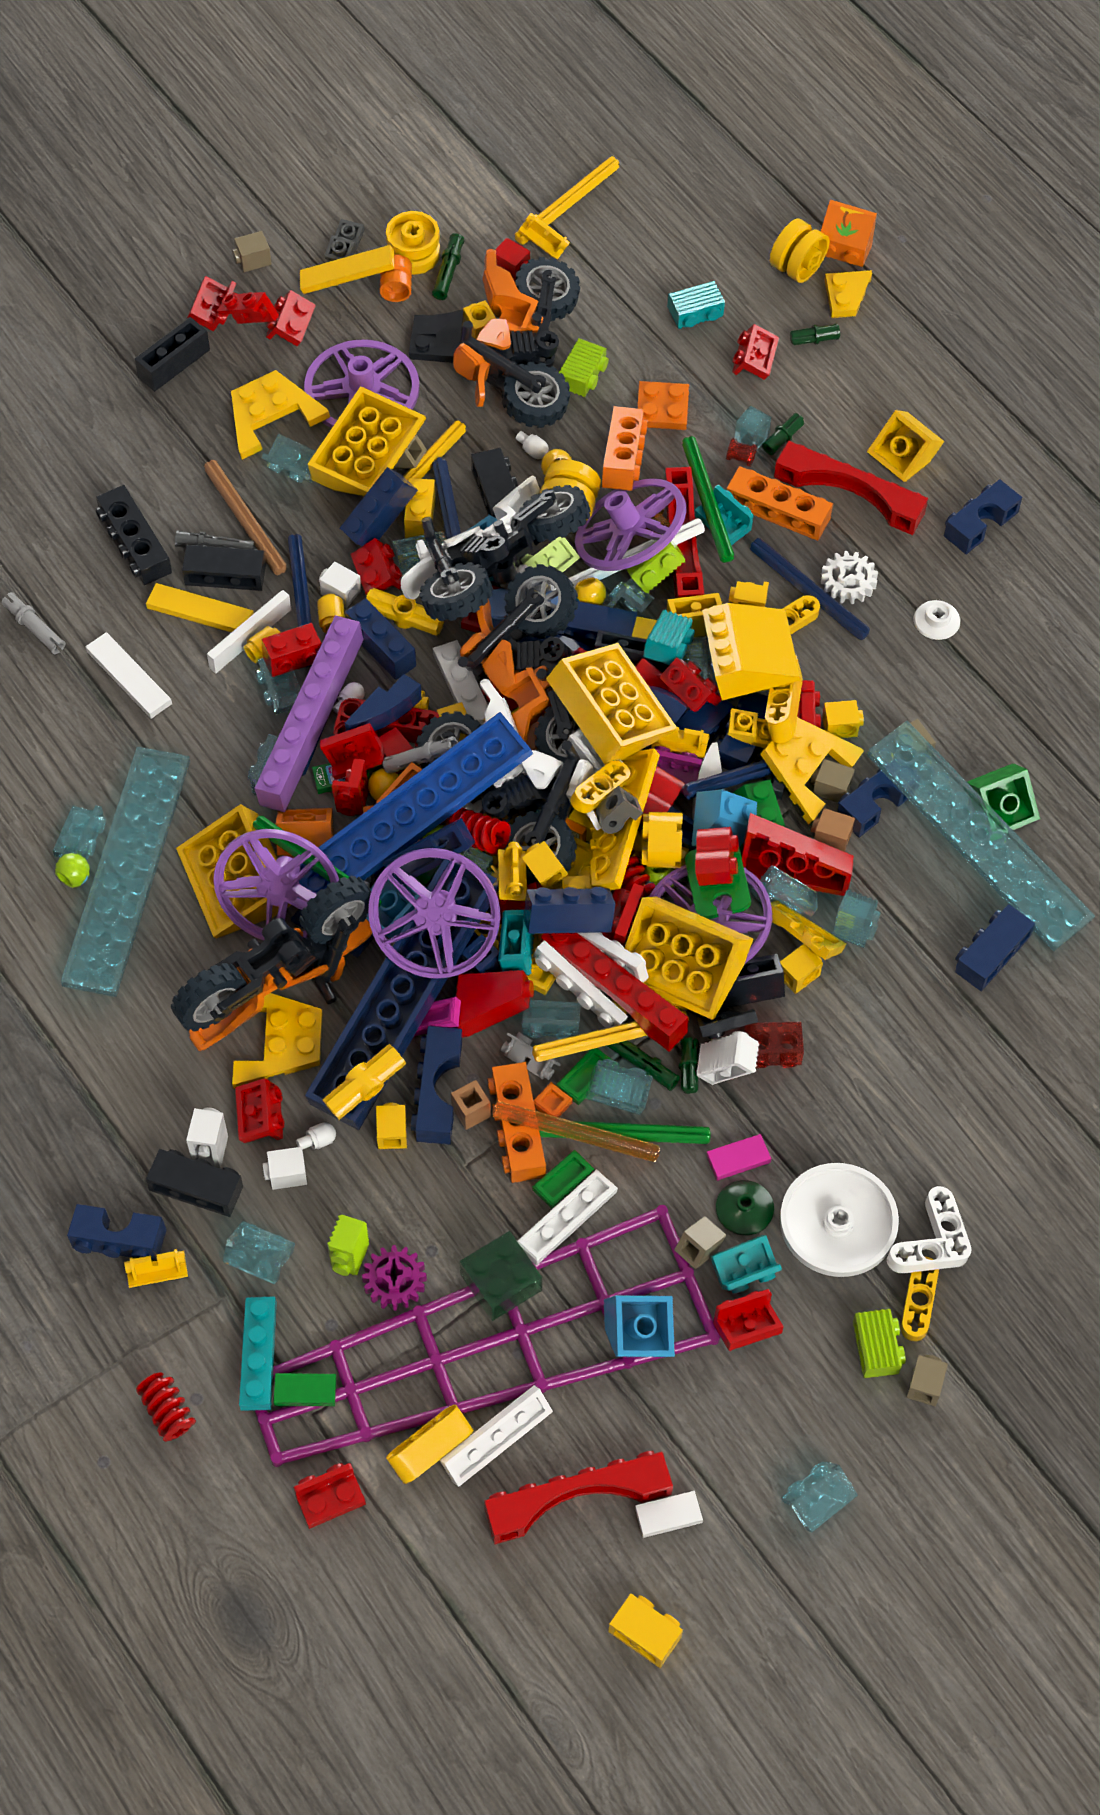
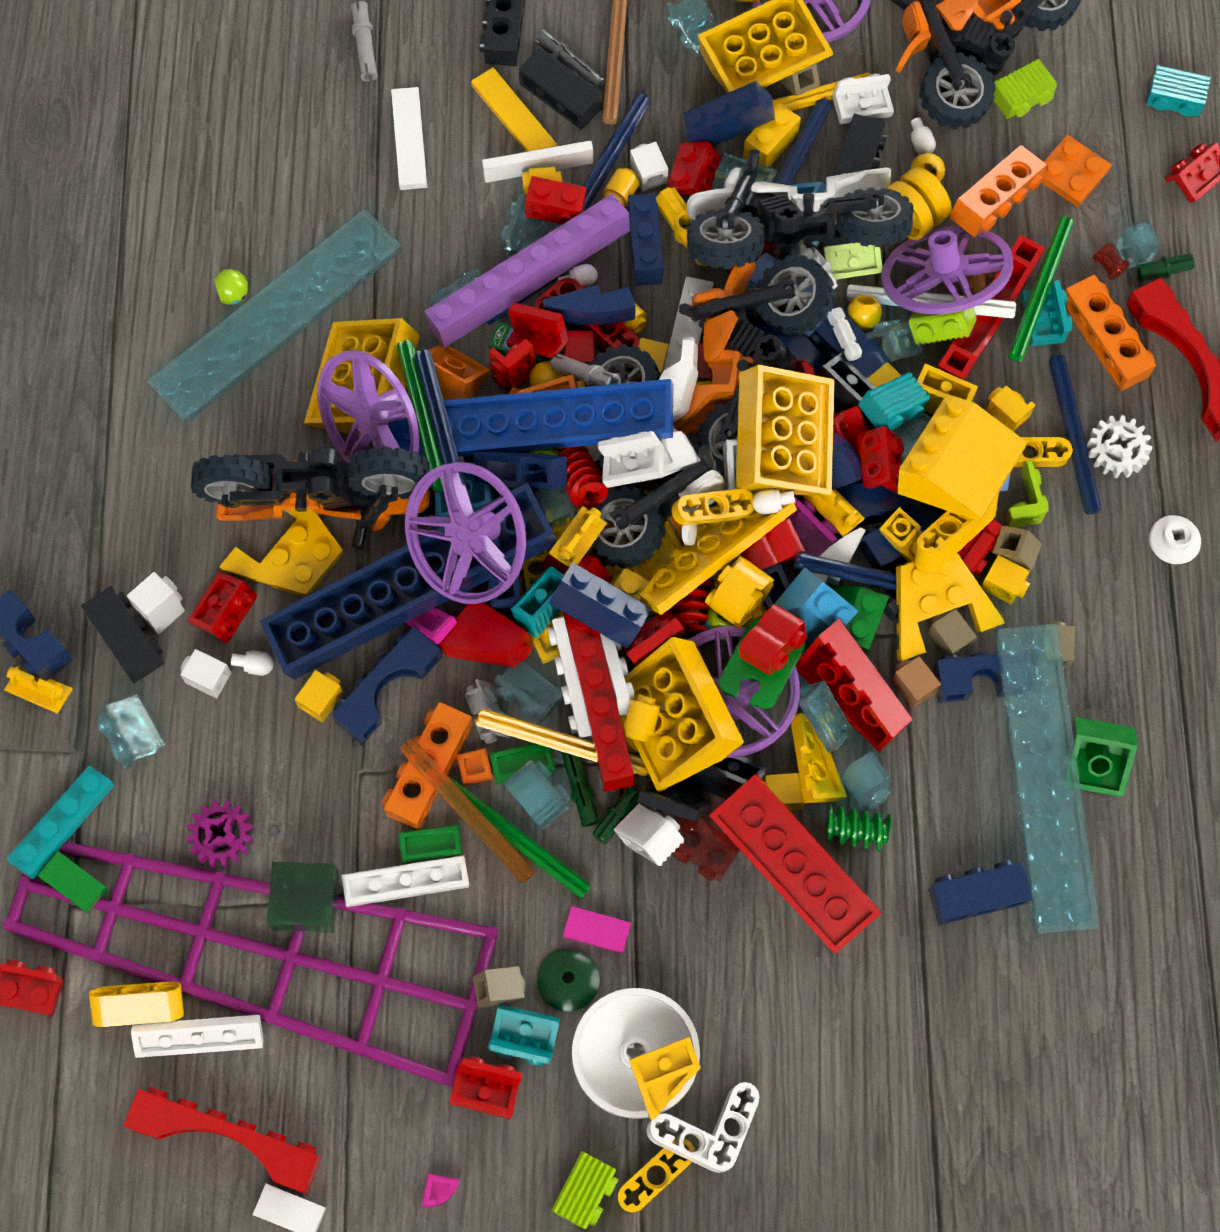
camera: 35 degrees right, 10 degrees up
(80, 832) = (263, 257): clear light blue bracket -> none
(340, 860) = (437, 409): none -> dark blue axle
(348, 1245) = (196, 780): lime brick -> none
(364, 1081) = (311, 643): yellow piece -> none
(467, 439) = (864, 97): none -> white bracket
(471, 1104) = (396, 722): medium nougat brick -> none
(513, 788) = (632, 459): none -> white bracket
(544, 864) = (609, 548): yellow brick -> none
(594, 616) = (844, 334): none -> white axle
(617, 809) = (711, 539): dark grey leg -> none
(639, 756) = (771, 500): none -> white cylinder
(640, 1325) = (385, 1028): dark azure slope -> none
(662, 972) = (641, 718): none -> yellow brick
(768, 1420) = (438, 1190): none -> dark pink tile
(822, 653) = (1028, 514): none -> lime bracket
(833, 687) = (1018, 546): none -> dark tan brick
(850, 1007) = (795, 863): none -> red plate
(872, 956) = (857, 828): none -> green piece
(873, 1215) = (664, 1073): none -> yellow wing

